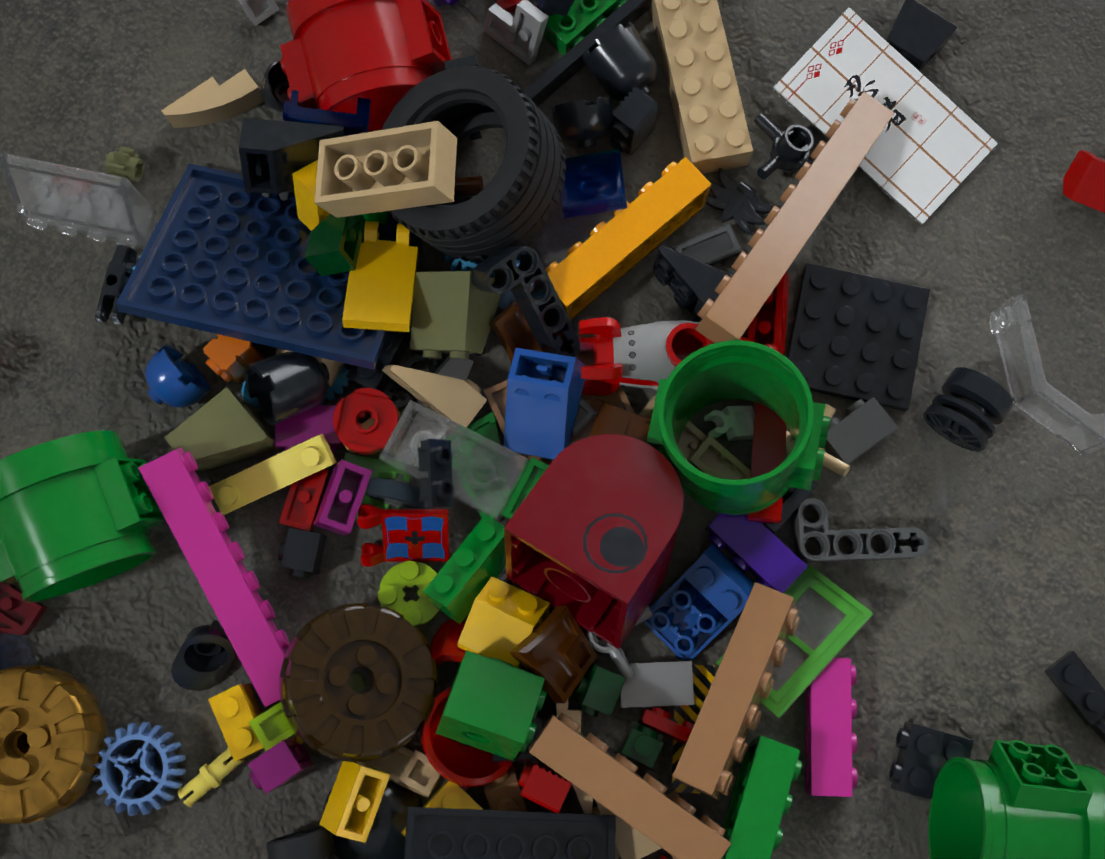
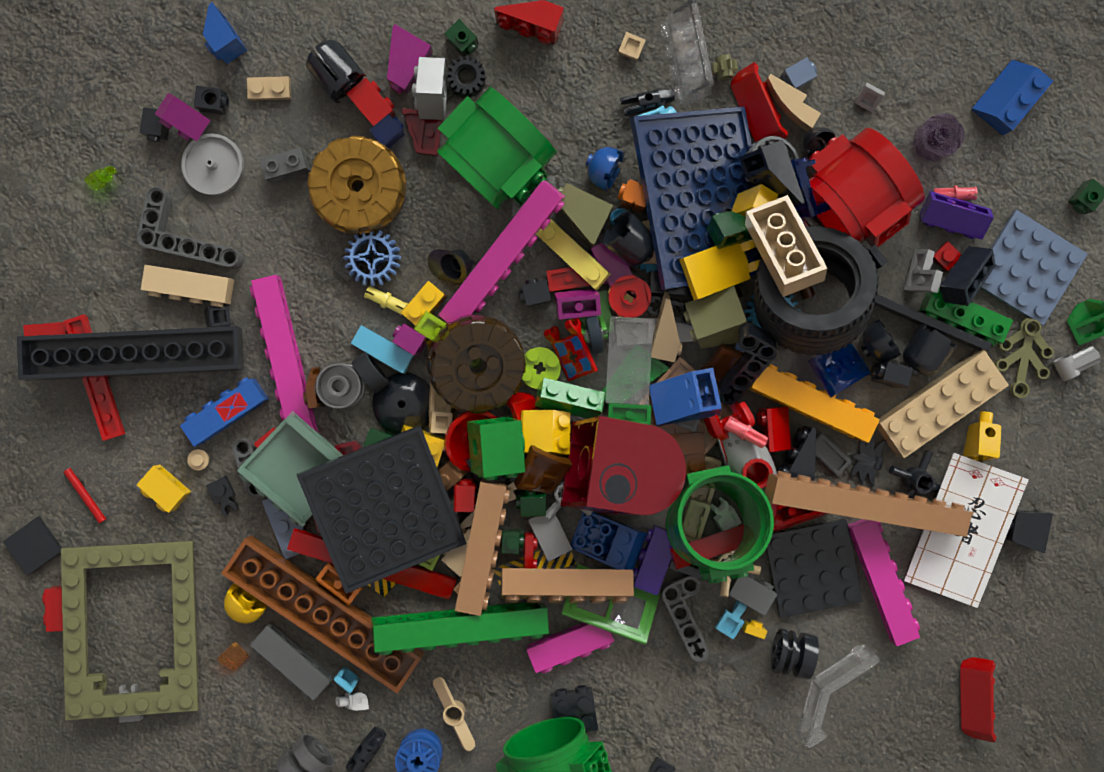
camera: 65 degrees right, 10 degrees up
(35, 275) = (631, 46): none -> tan plate
(176, 145) = (758, 104): none -> red piece
(182, 74) = (800, 73): none -> sand blue brick
(278, 812) = (382, 349): none -> medium azure slope
(354, 800) = (410, 392): yellow brick -> none
(436, 458) = (607, 360): black hinge -> none
(624, 336) = (745, 432): none -> coral axle
(637, 302) = (775, 426): none -> red slope
(771, 43) = (983, 439): none -> yellow torso
(887, 479) = (730, 621): none -> medium azure plate
(909, 450) = (754, 628): none -> yellow plate
(913, 249) = (883, 581): none -> dark pink brick

